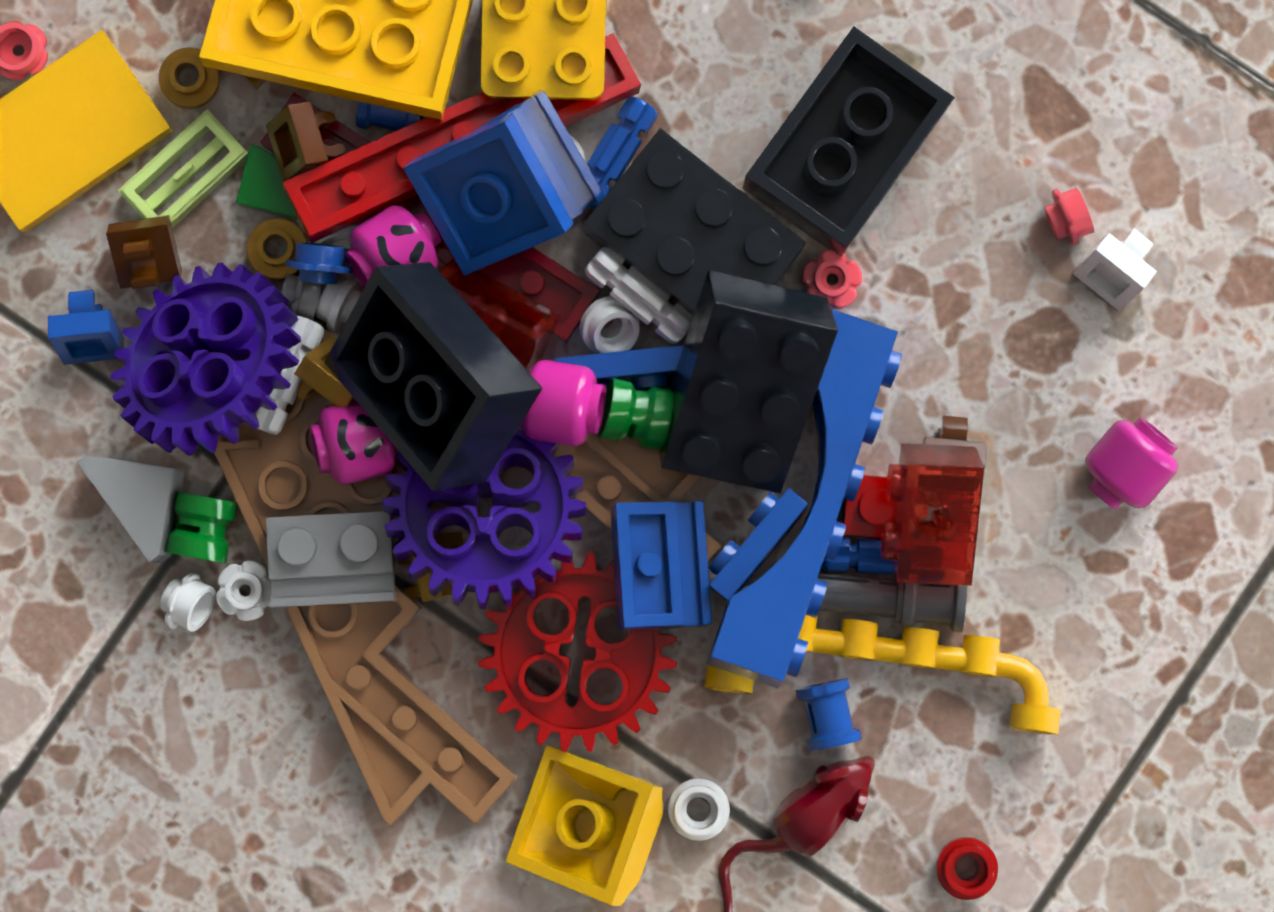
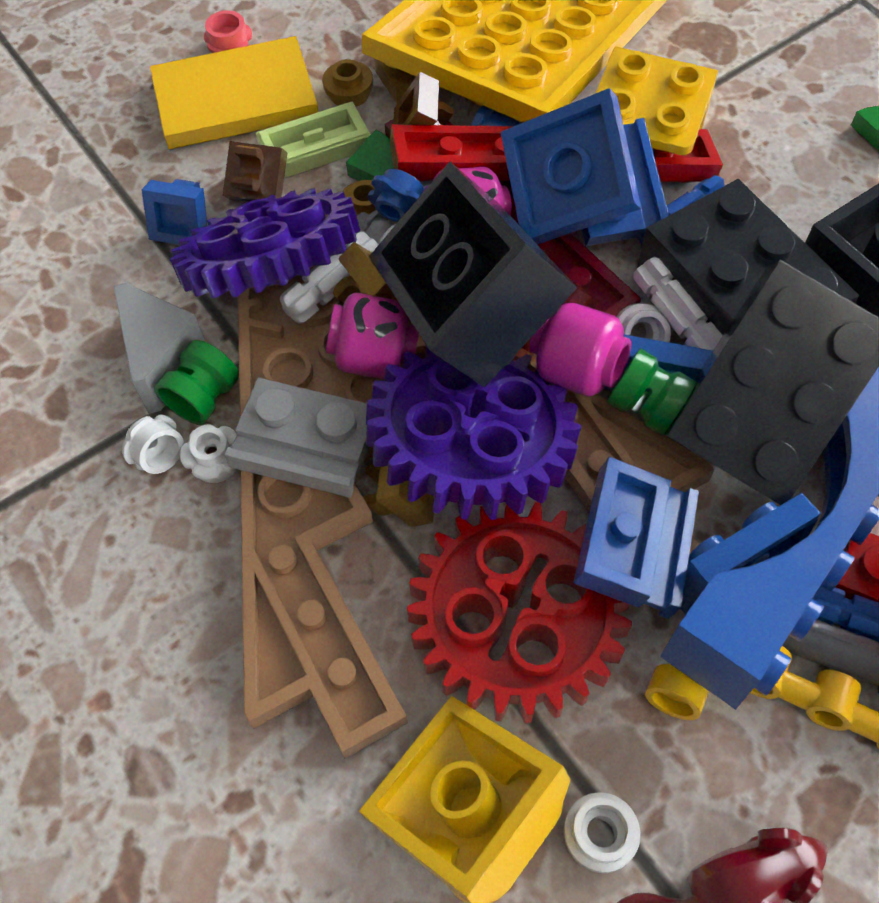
camera: 20 degrees right, 25 degrees down
(828, 714) = (785, 770): blue bush -> none

